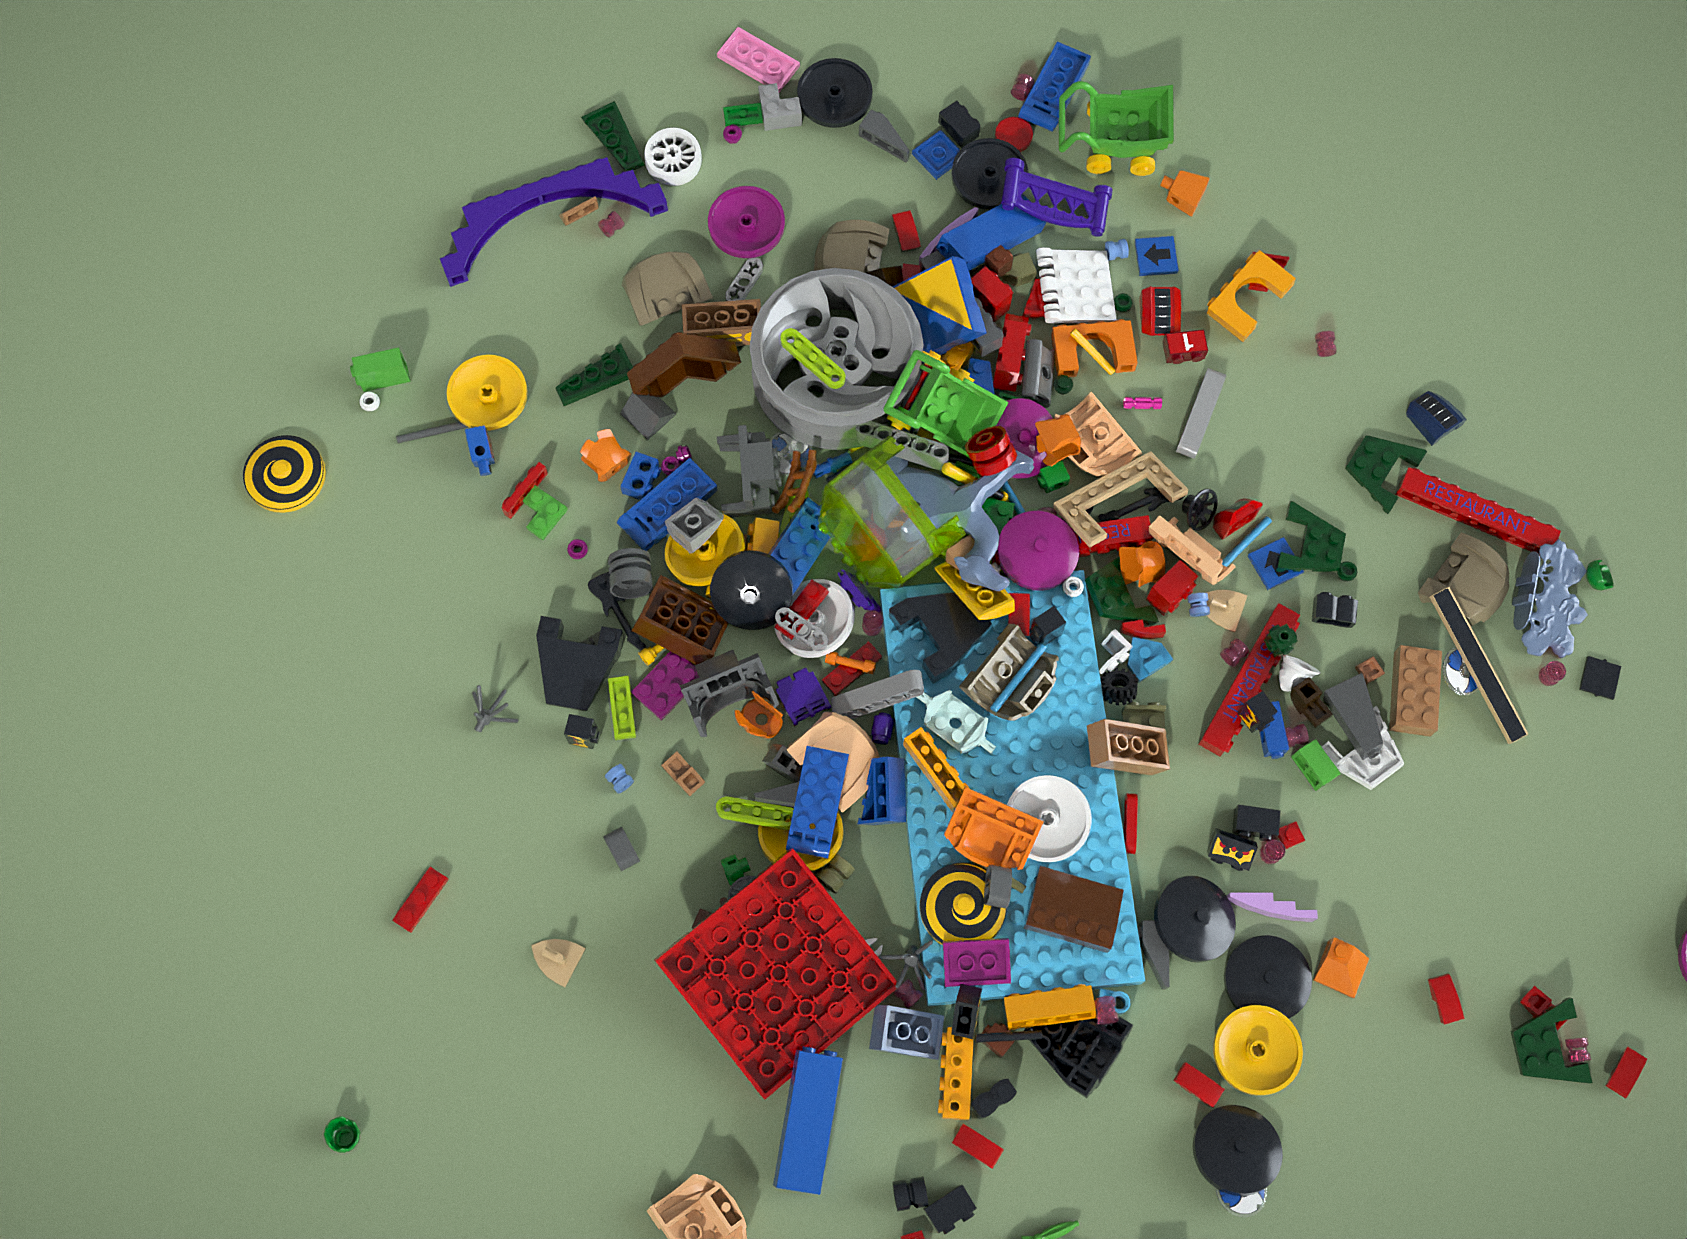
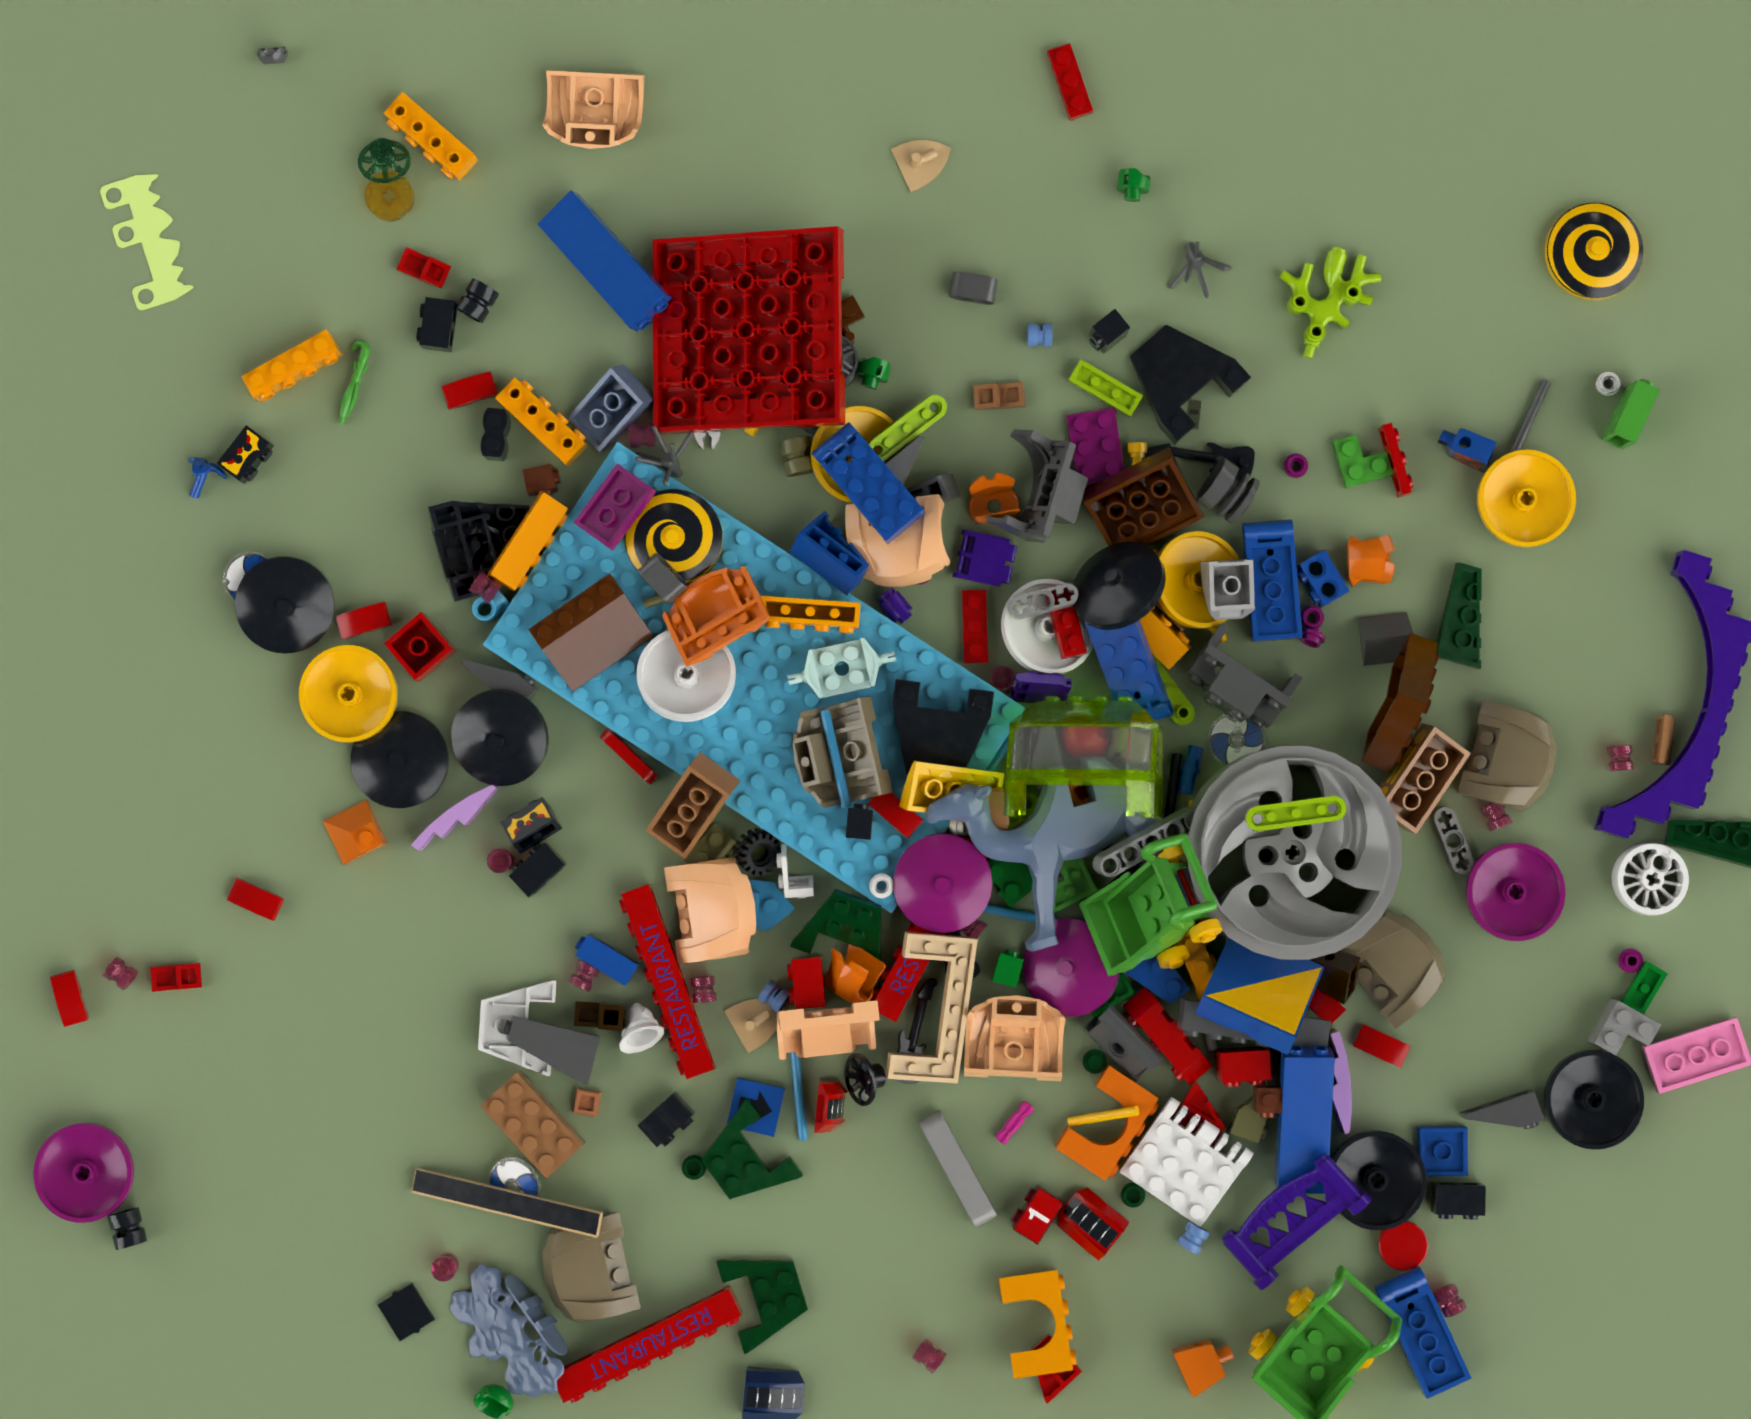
camera: 135 degrees right, 15 degrees up
(436, 608) = (1328, 309): none -> lime plant
(463, 796) = (1134, 185): none -> green piece
(708, 266) = (1496, 816): none -> clear pink wheel
(795, 474) = (1207, 723): dark orange piece -> none
(868, 666) = (962, 637): orange bar -> none
(879, 694) = (924, 620): light grey beam -> none
(965, 478) = (1071, 873): yellow piece -> none
(966, 1011) = (582, 465): black brick -> none
(991, 450) = (1072, 917): red wheel -> none
(1008, 1036) = (533, 487): black bar -> none
(1057, 438) = (1034, 993): orange piece -> none
(1137, 630) = (798, 919): red slope -> none
(1156, 256) = (1156, 1273): blue tile -> none
(1181, 684) = (713, 909): none -> light nougat piece
(1183, 1026) = (420, 647): none -> red brick
(1257, 712) = (626, 949): black brick -> none
(1281, 640) = (685, 1034): dark green brick -> none
(1291, 835) = (502, 892): red plate -> none
(1315, 765) = (543, 970): bright green hinge -> none
(1540, 1050) = (151, 942): dark green wing -> none

